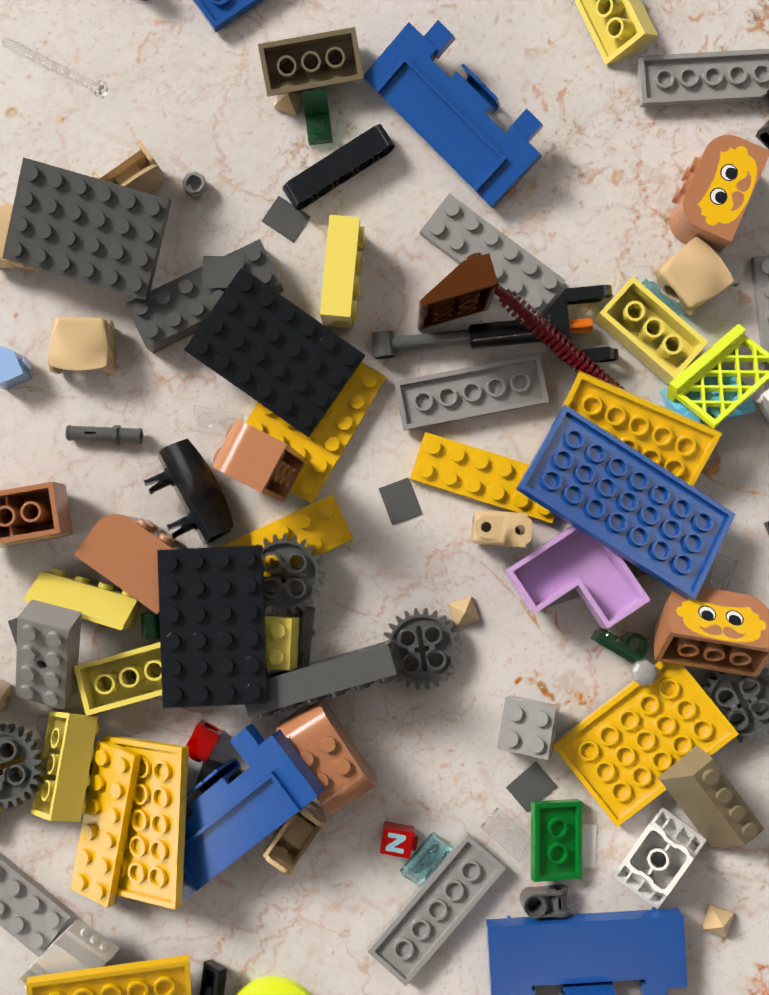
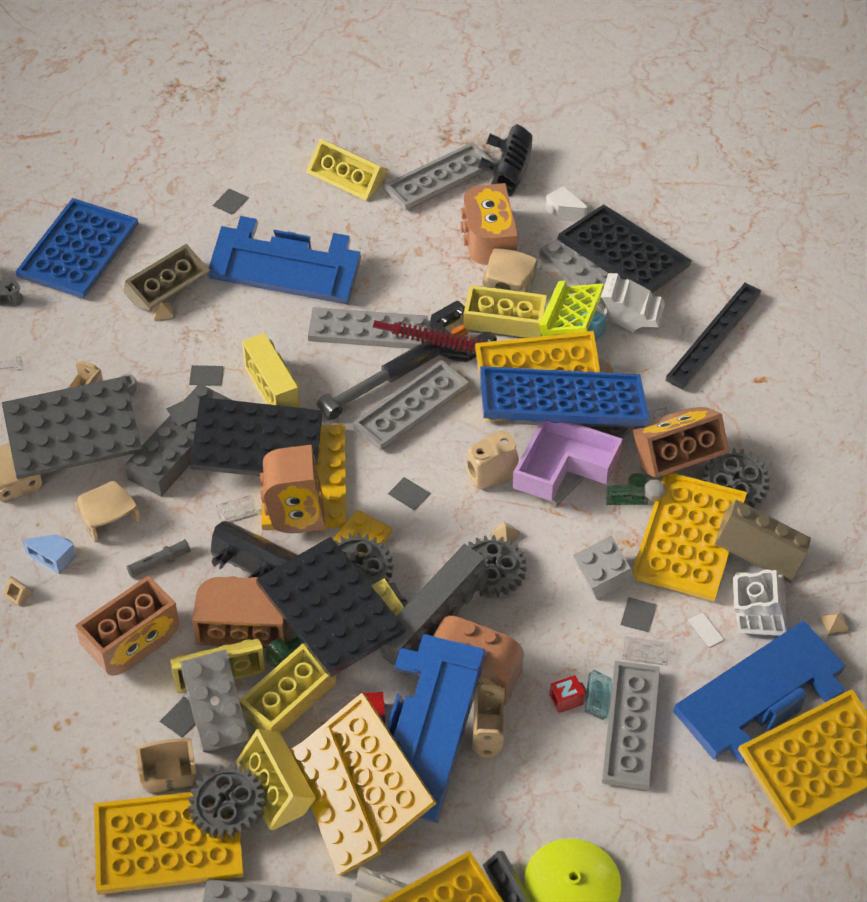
camera: 40 degrees left, 35 degrees down
(317, 116) = (186, 305): clear green plate -> none
(338, 167) = (224, 328): black beam -> none
(460, 293) = (364, 340): reddish brown slope -> none
(475, 475) = (449, 448): yellow plate -> none
(551, 901) = (705, 671): dark grey piece -> none
(556, 840) = (680, 629): green plate -> none

